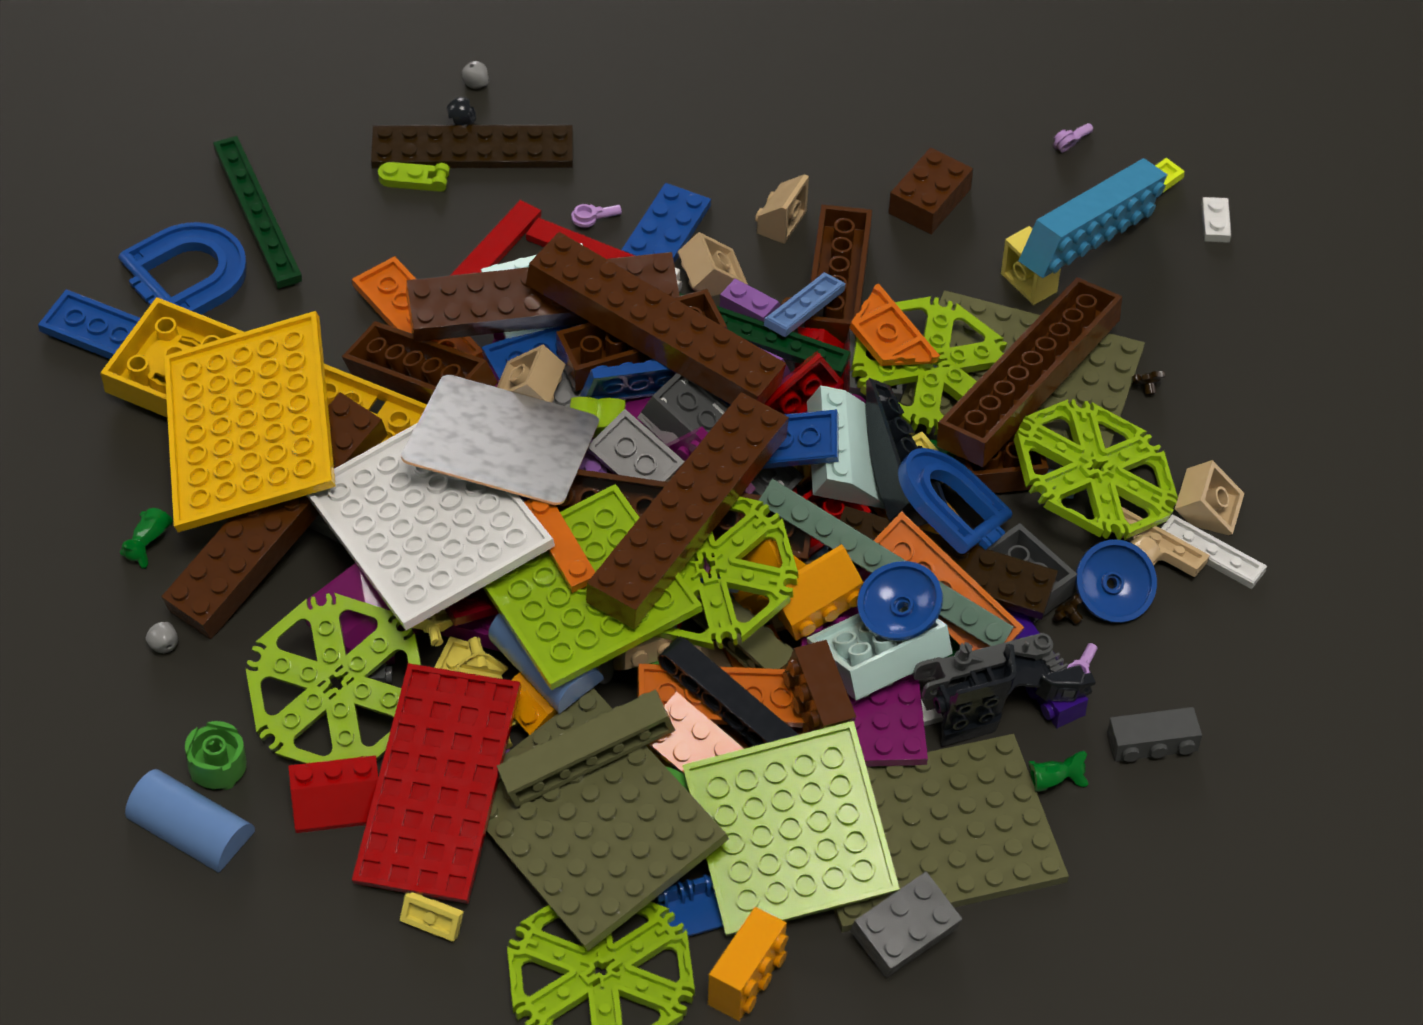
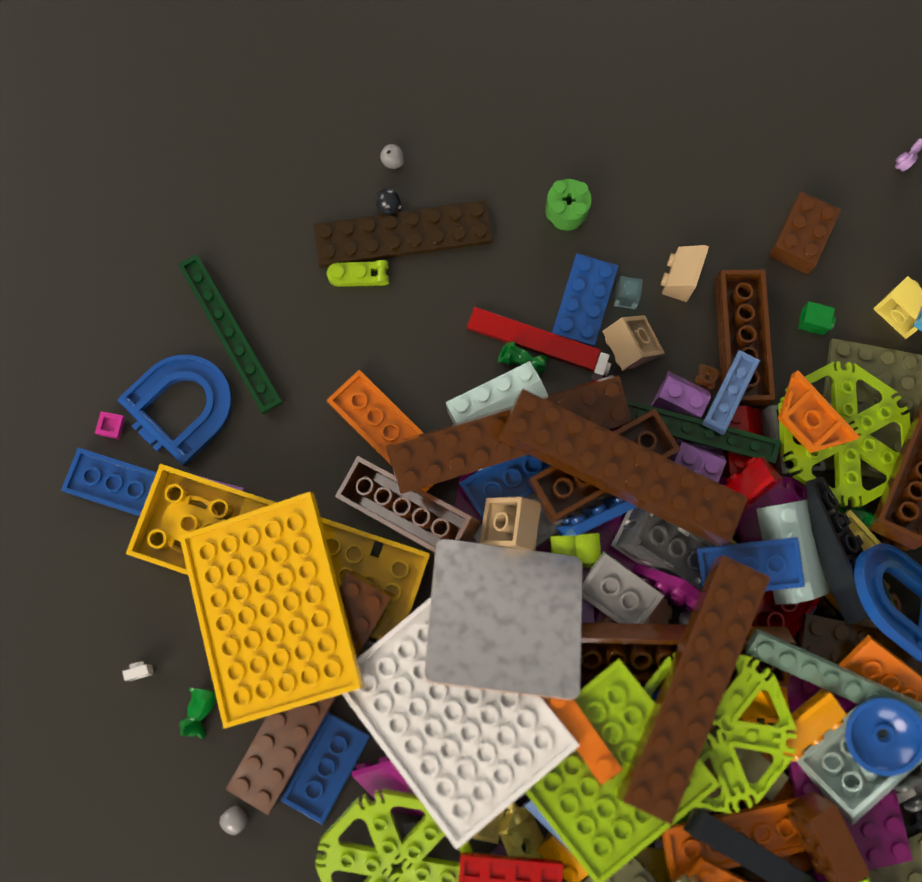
camera: 10 degrees left, 25 degrees up
(86, 494) = (137, 671): none -> white plate
(105, 276) = (110, 425): none -> dark pink plate
(270, 604) = (325, 768): none -> blue tile
(500, 239) = (436, 353): red tile -> none
(586, 215) = (514, 298): lavender plate -> none
(664, 135) = (578, 200): none -> bright green brick
(716, 220) = (628, 292): none -> clear light blue brick
(928, 269) = (816, 318): none -> green brick

